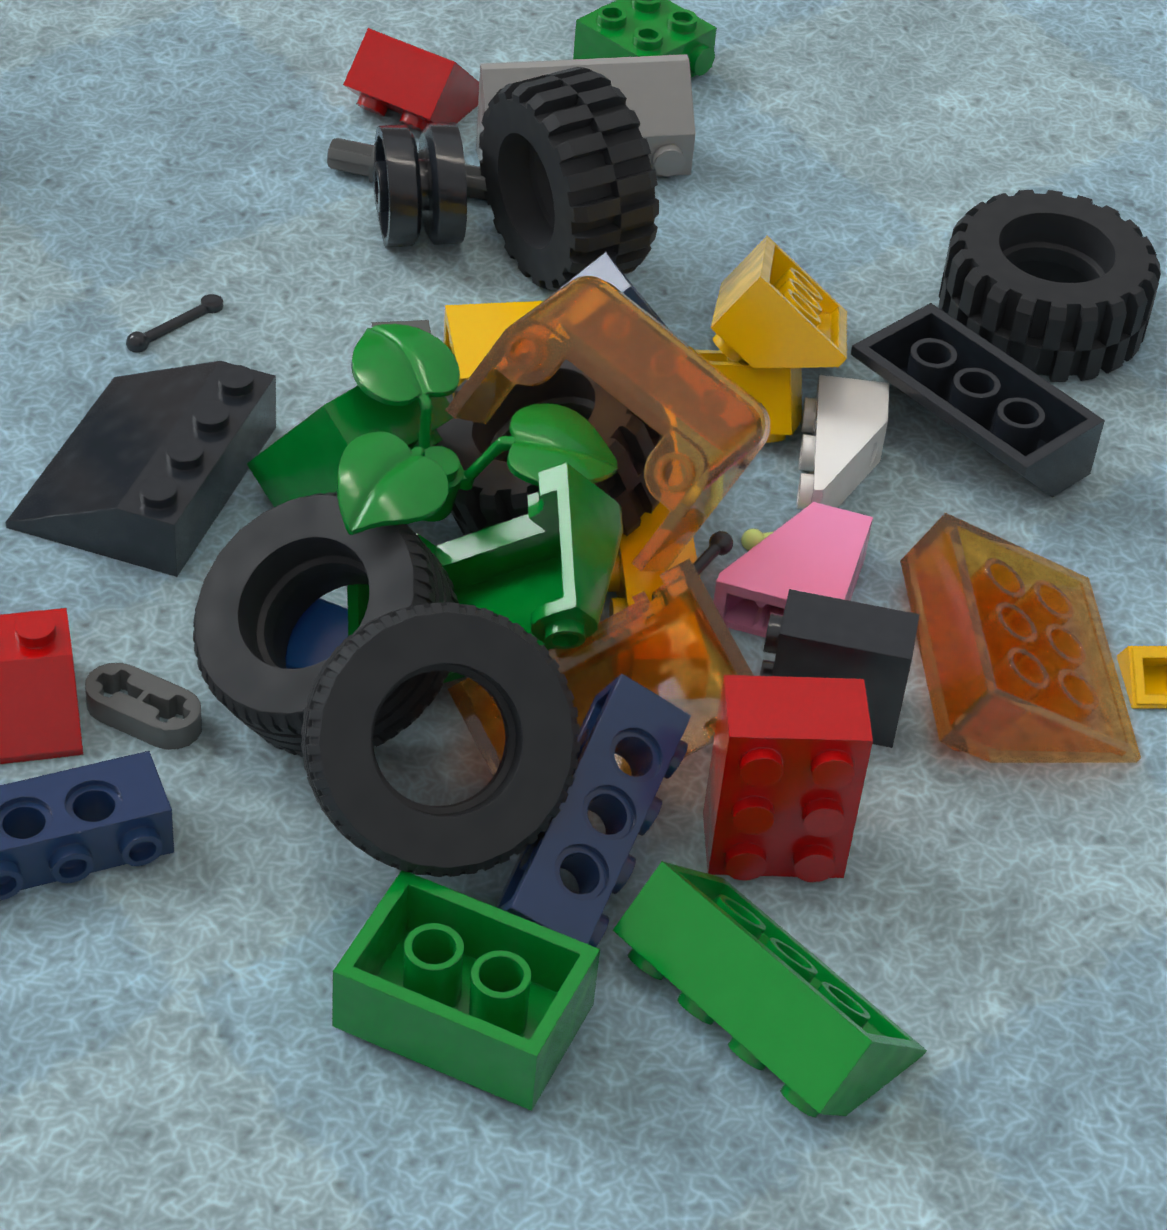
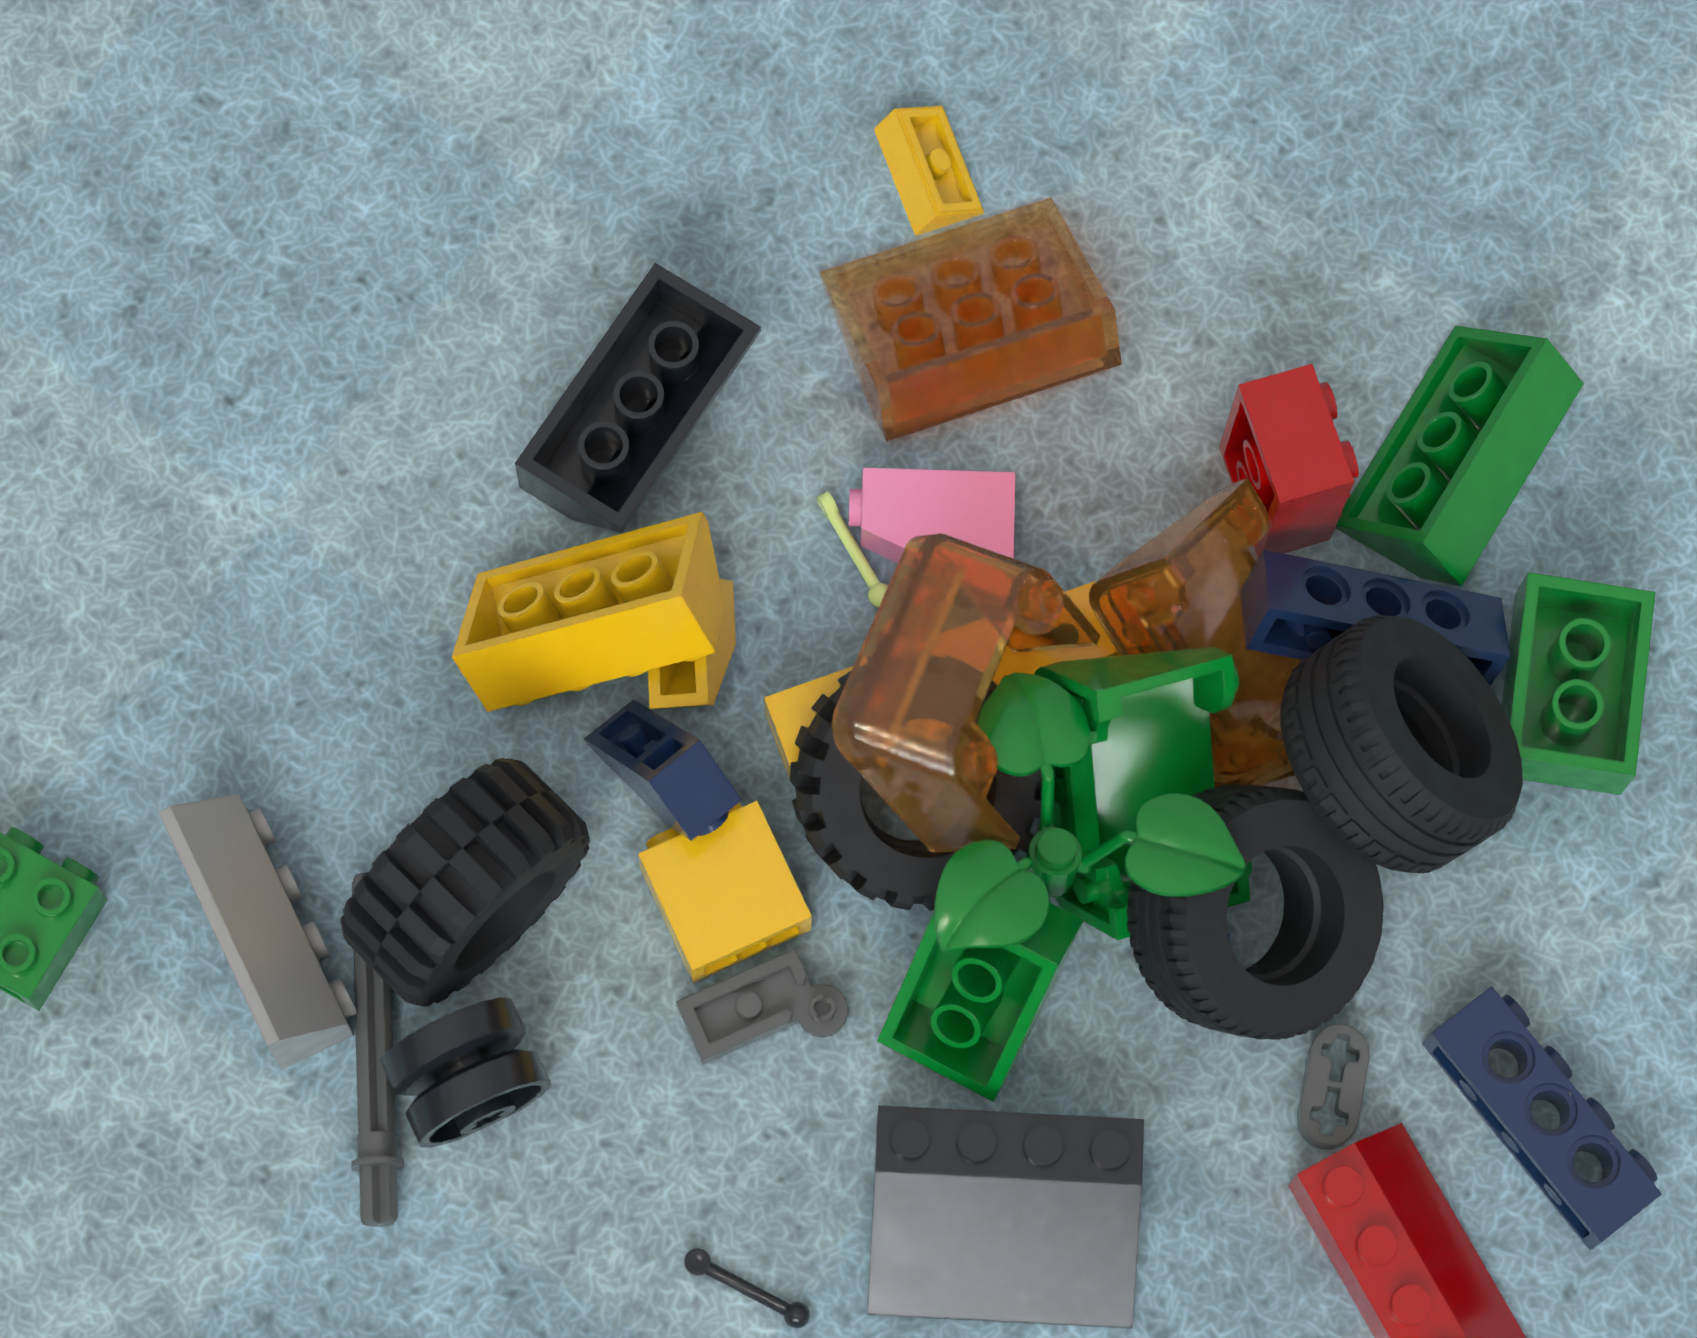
camera: 105 degrees left, 30 degrees up
(410, 82) = (205, 1165): red slope -> none
(845, 438) = (746, 527): white slope -> none
(848, 641) = (1093, 455): black brick -> none
(1052, 282) = (374, 285): black tyre -> none

